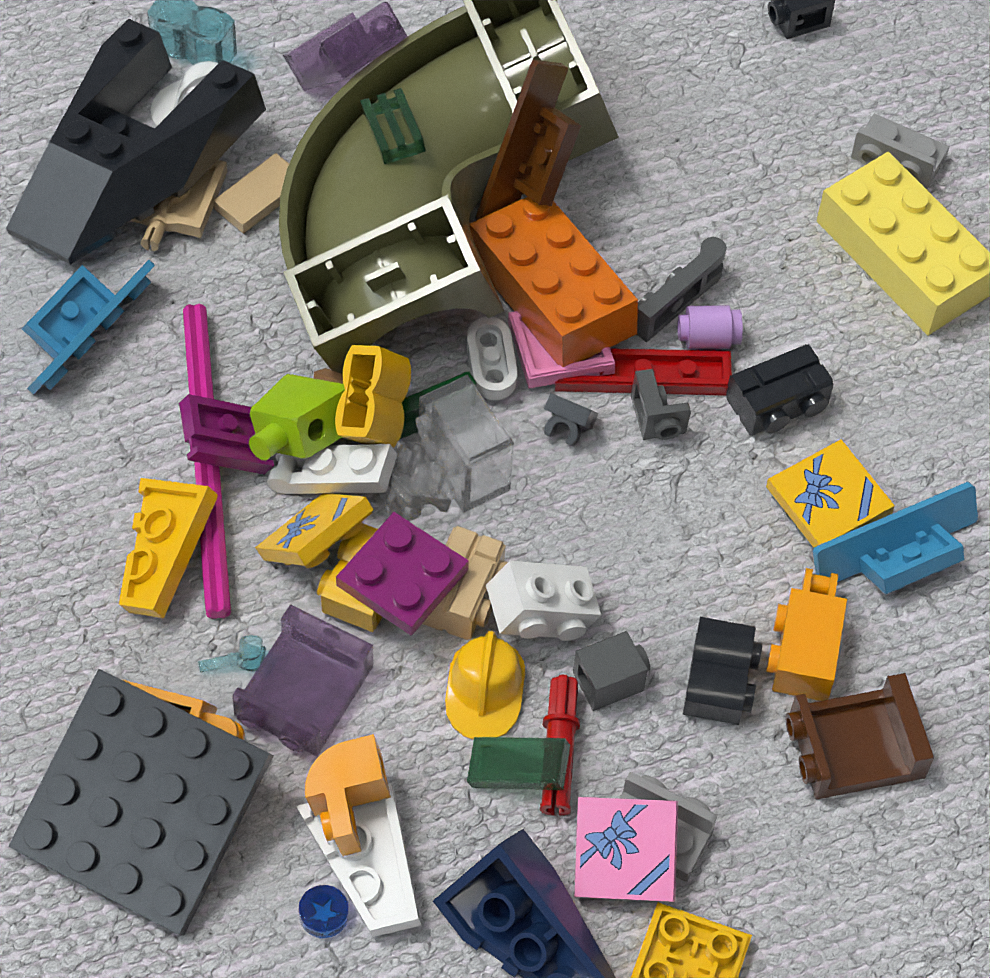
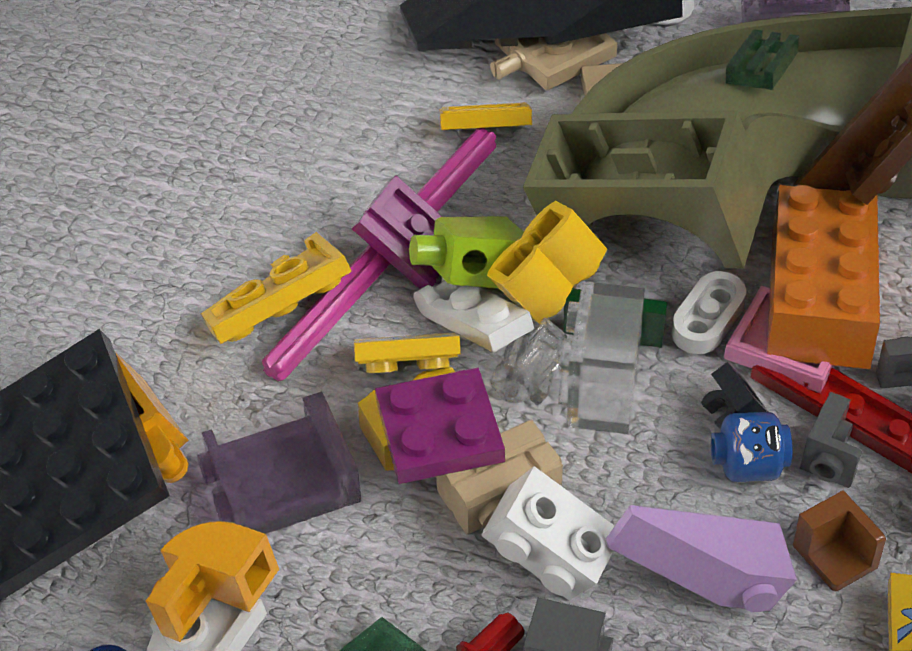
camera: 45 degrees right, 10 degrees down
(73, 314) = (384, 88): dark azure bracket -> none
(179, 293) = (485, 116): none -> yellow tile
(248, 657) = (257, 419): clear light blue hand -> none
(485, 687) = (440, 582): yellow piece -> none
(611, 446) = (752, 447): none -> blue head
(658, 544) = (711, 555): none -> lavender slope
(718, 477) = (839, 541): none -> dark orange panel

